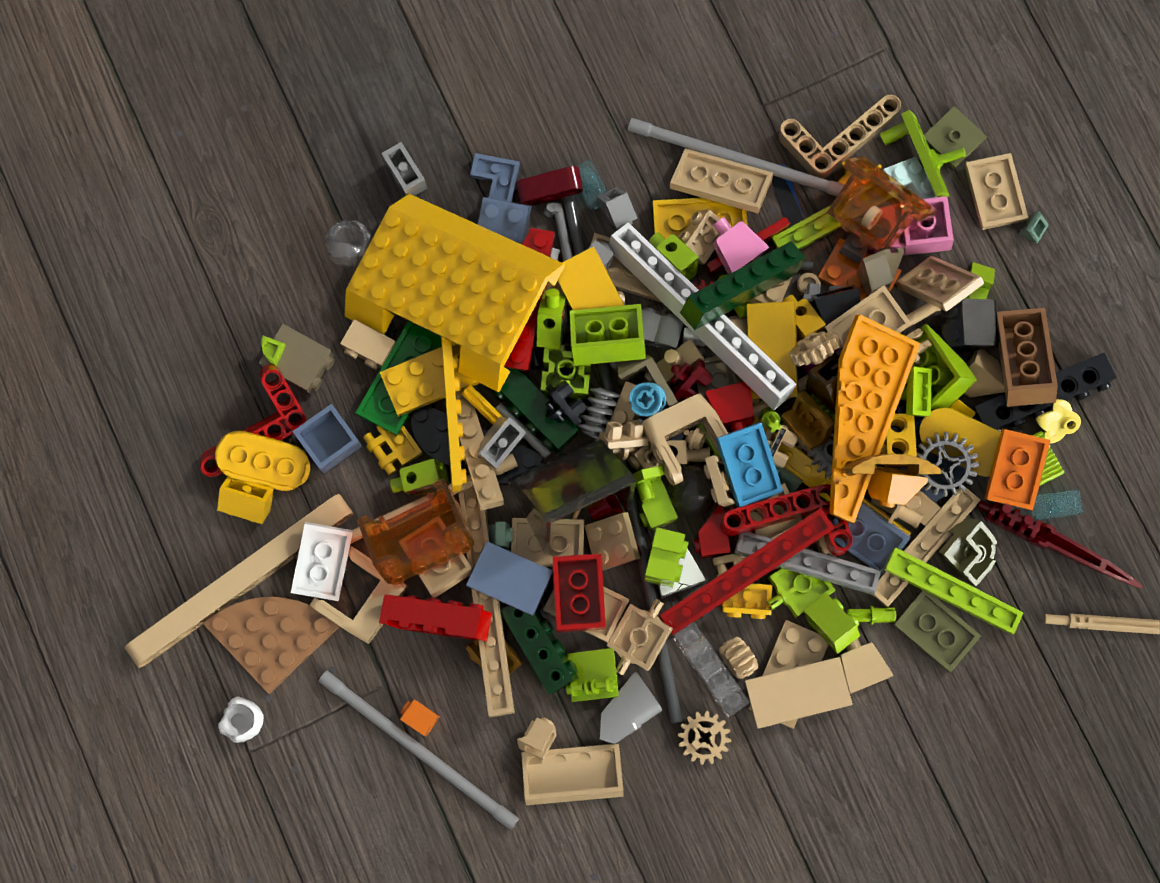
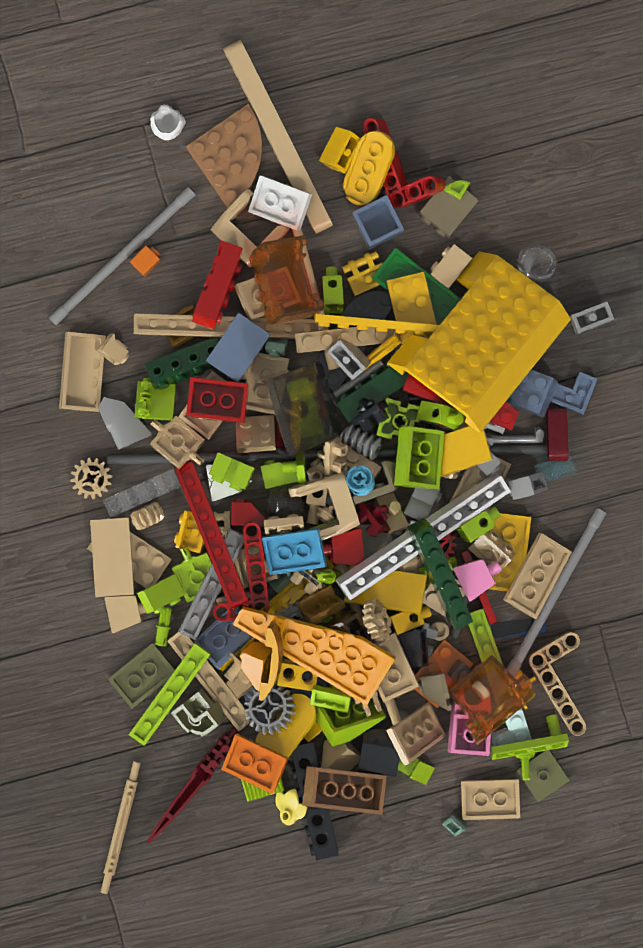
camera: 90 degrees right, 10 degrees up
(1057, 505) = (225, 792): clear light blue tile -> none

